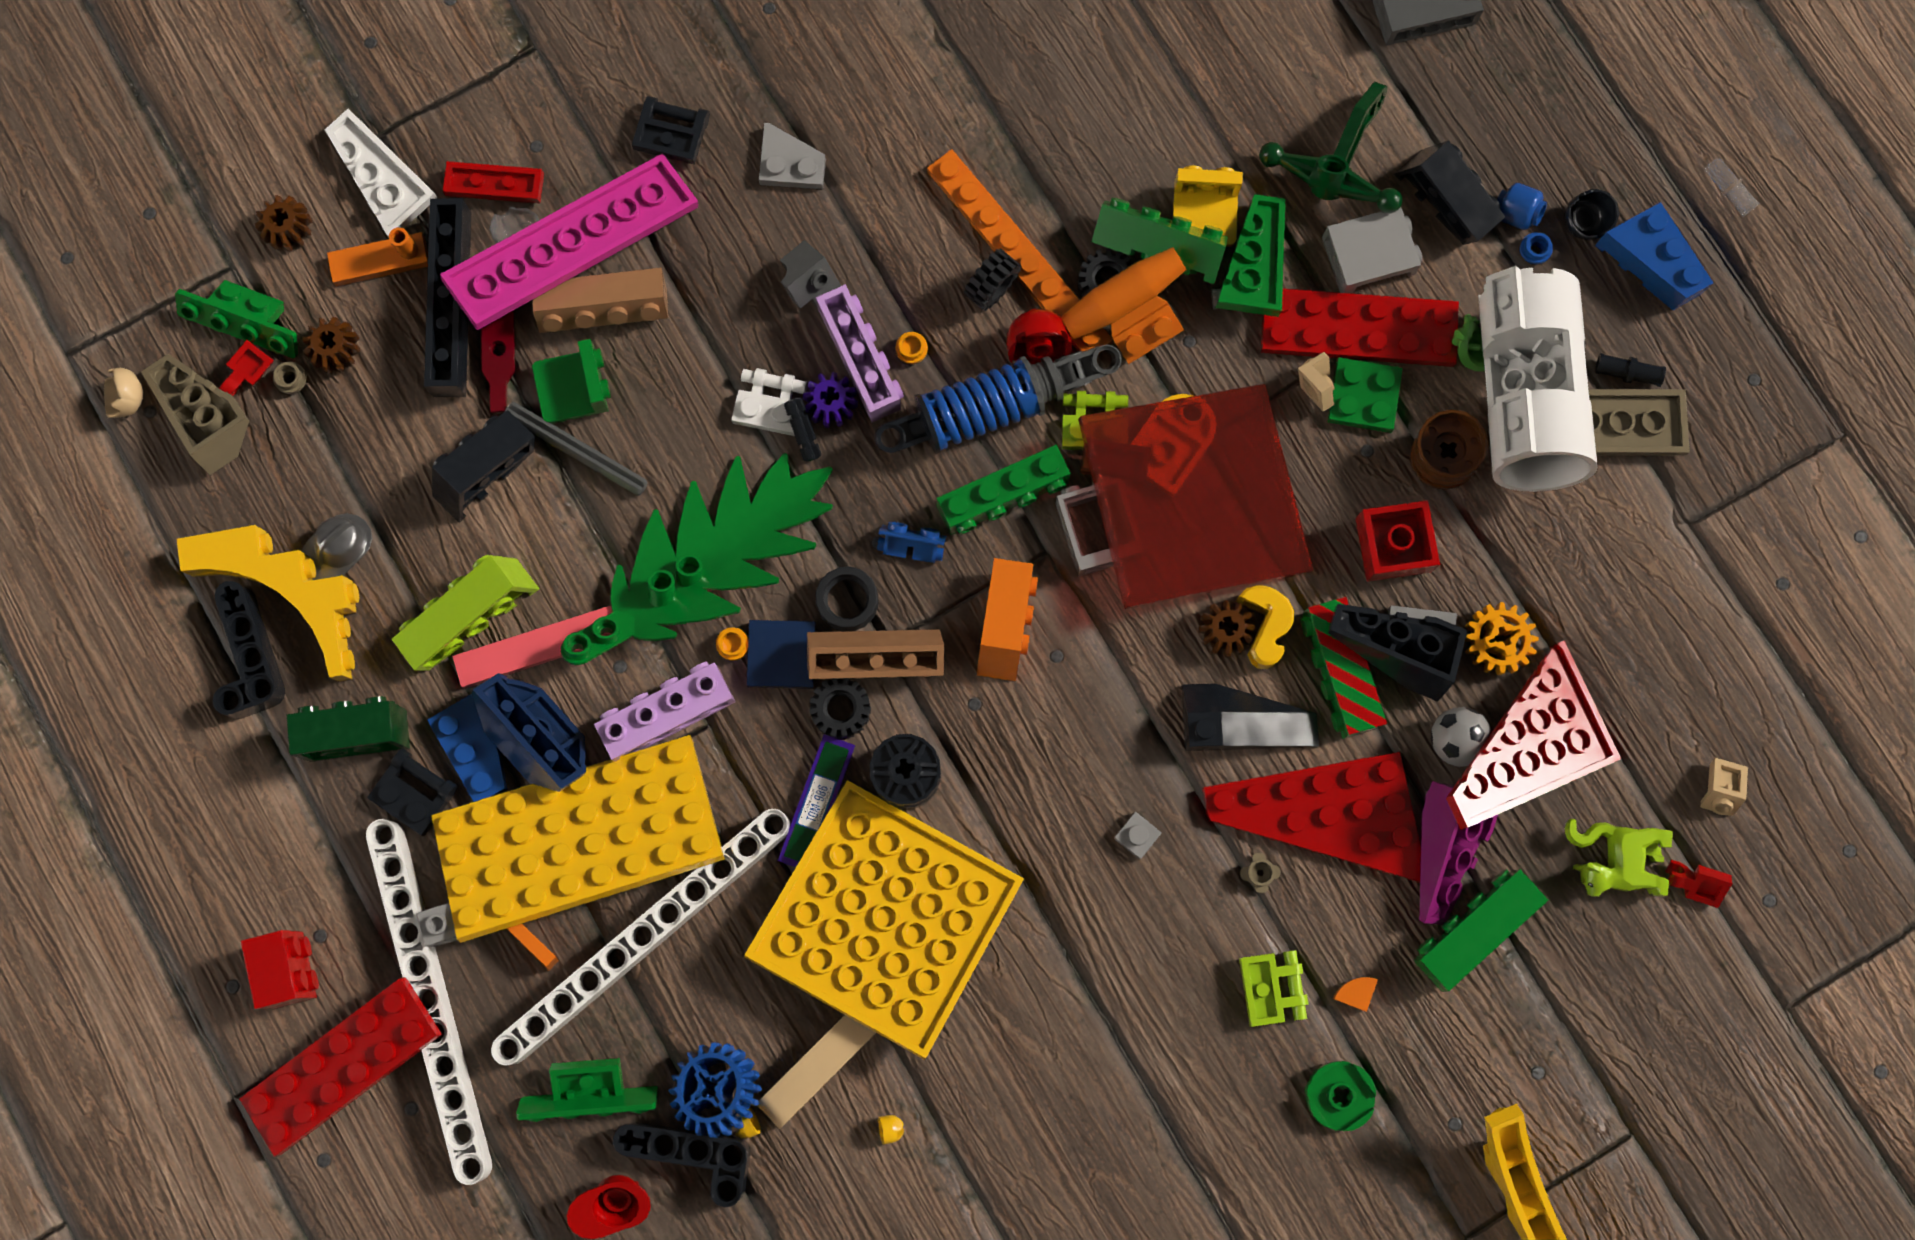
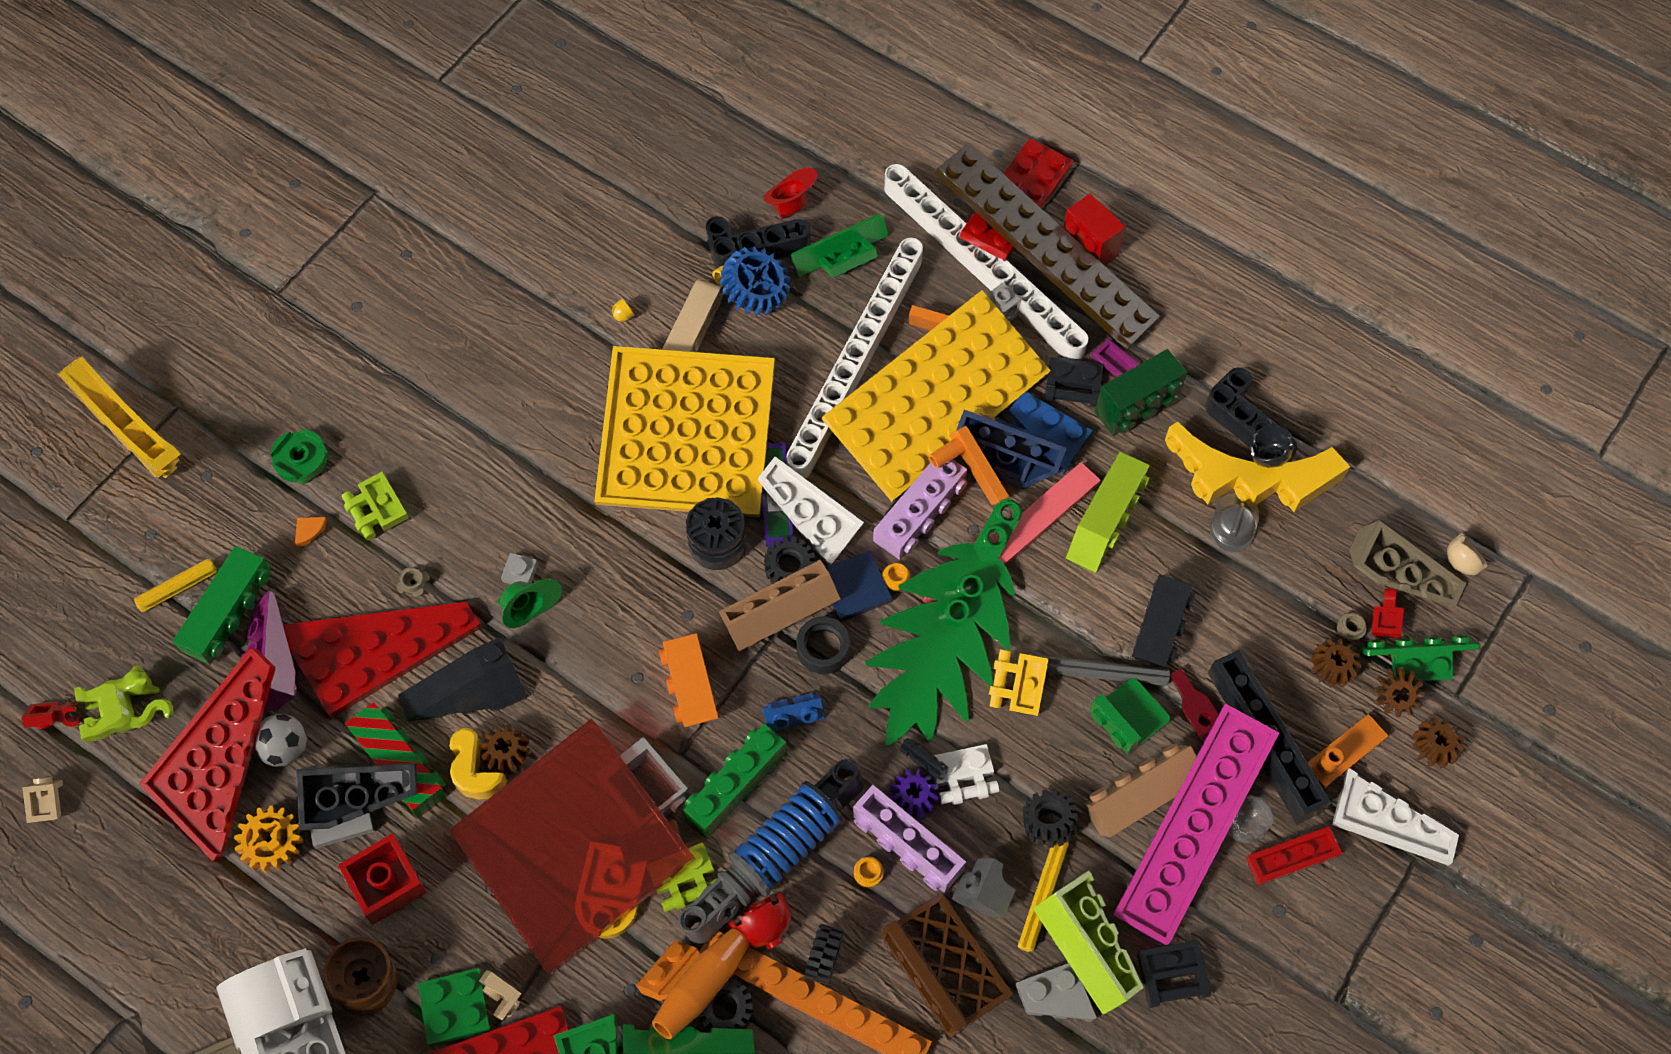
camera: 155 degrees right, 15 degrees down
(248, 589) = (1271, 446): none -> black hair
(288, 283) = (1398, 682): none -> reddish brown gear
(346, 977) = (1047, 245): none -> dark brown plate
(347, 792) = (1114, 358): none -> magenta tile
(582, 746) = (966, 446): none -> orange piece
(655, 460) = (1027, 685): none -> yellow plate
(689, 319) = (1050, 832): none -> black tyre
(736, 185) = (1090, 943): none -> lime wedge
(752, 254) = (1044, 890): none -> yellow axle
(786, 752) = (813, 512): none -> white wing
(906, 226) = (921, 972): none -> reddish brown fence
(1147, 792) = (526, 601): none -> green piece
(1526, 987) = (175, 585): none -> yellow axle

